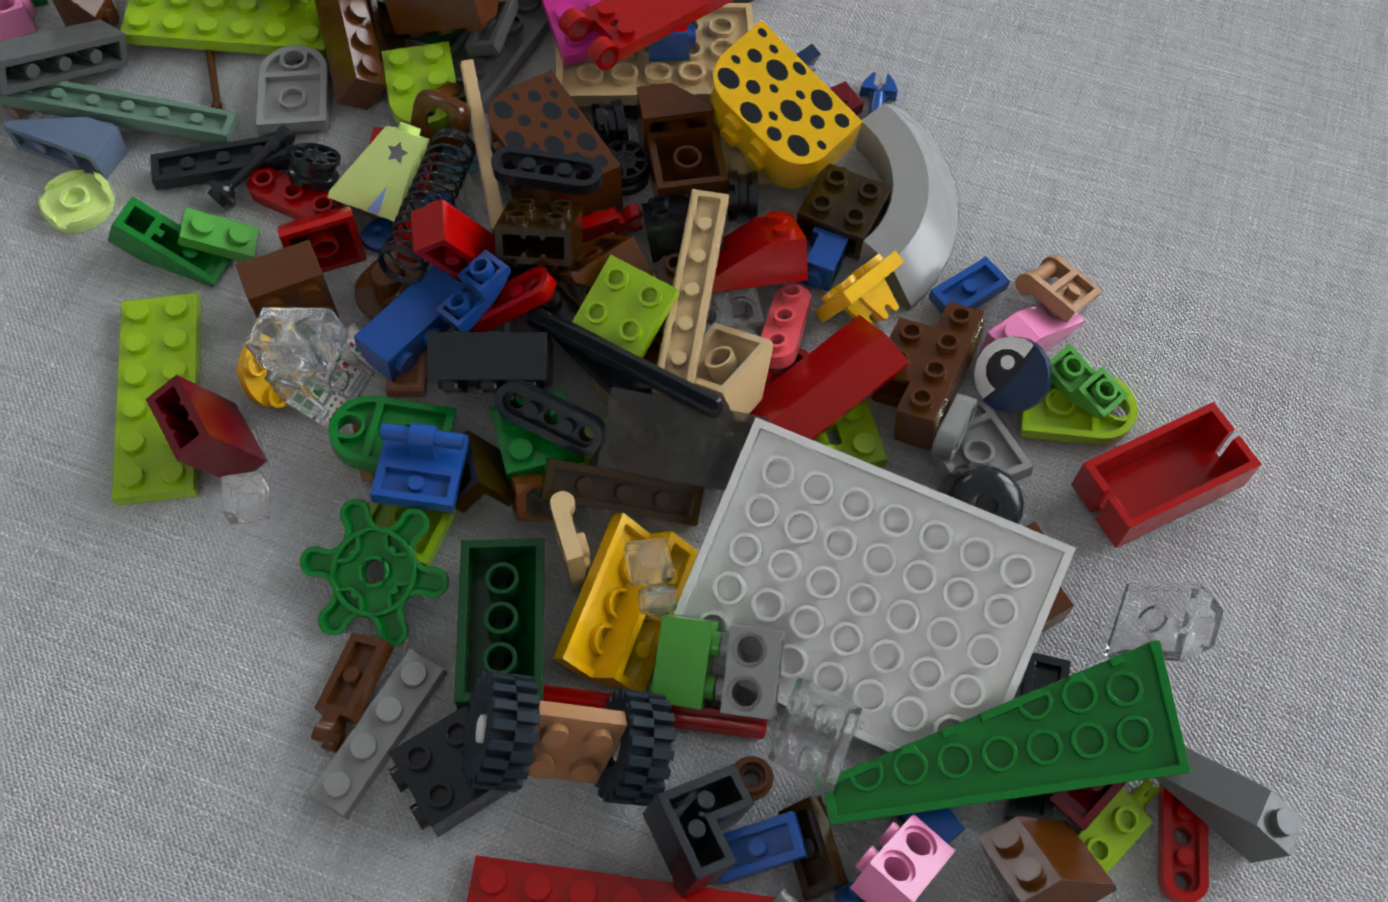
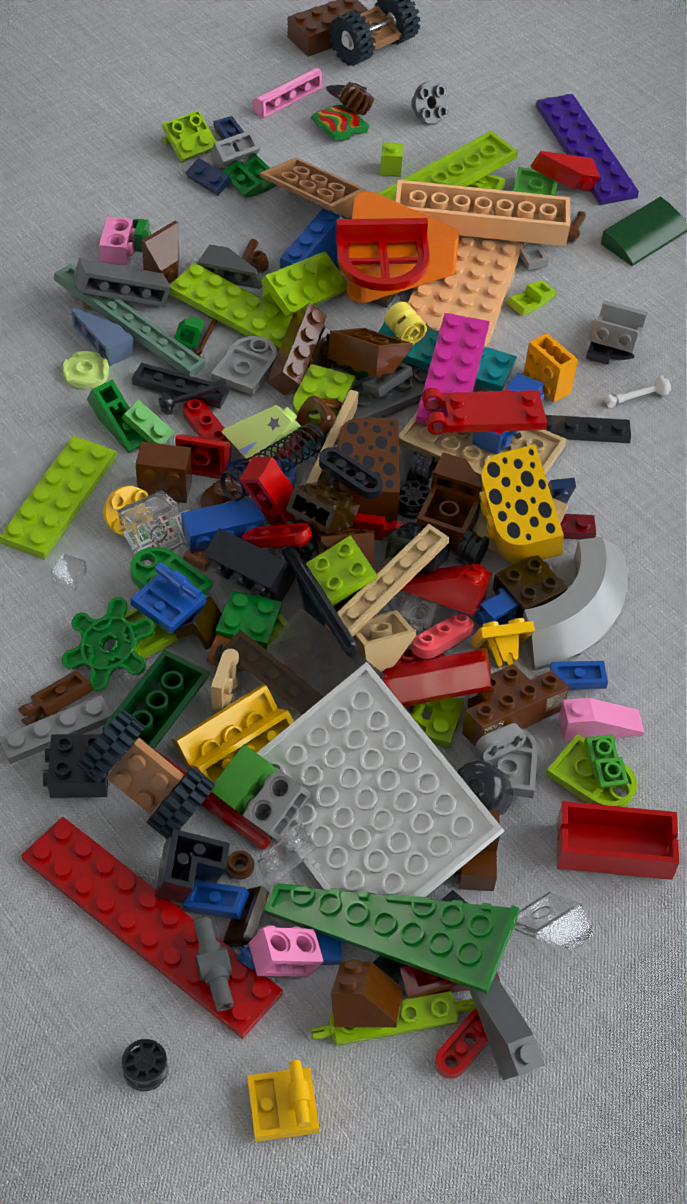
camera: 30 degrees right, 10 degrees down
(189, 82) = (189, 331): none -> green rock
(205, 429) = (69, 522): dark red brick -> none
(297, 339) = (146, 496): clear brick -> none
(313, 166) = (227, 411): black wheel -> none
(481, 286) = (272, 516): blue slope -> none
(535, 417) = (251, 606): black plate -> none
(651, 565) = (258, 720): clear plate -> none
(877, 97) = (609, 525): blue bar -> none
(1013, 374) = (560, 732): tile -> none
(1065, 296) = (637, 708): medium nougat plate -> none

